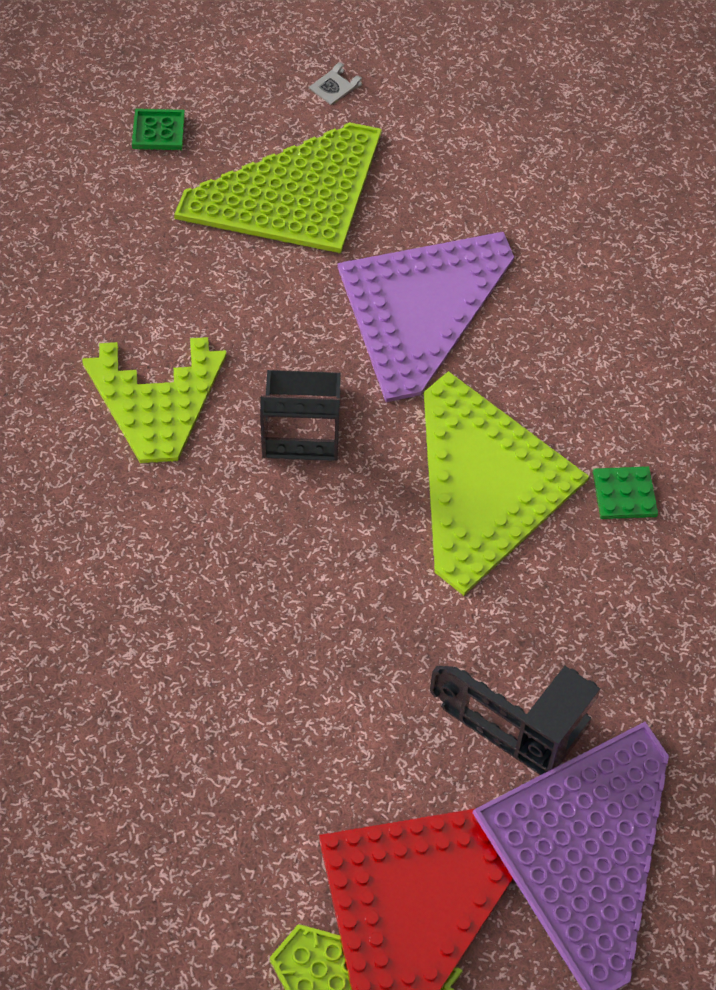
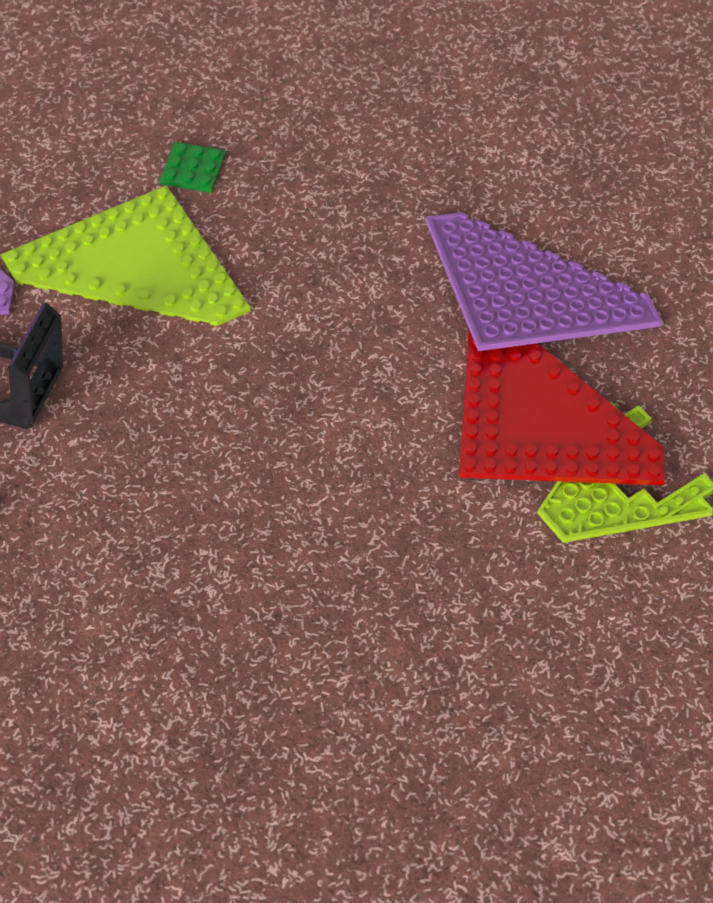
camera: 70 degrees left, 0 degrees up
(545, 731) = (419, 274): black bracket -> none

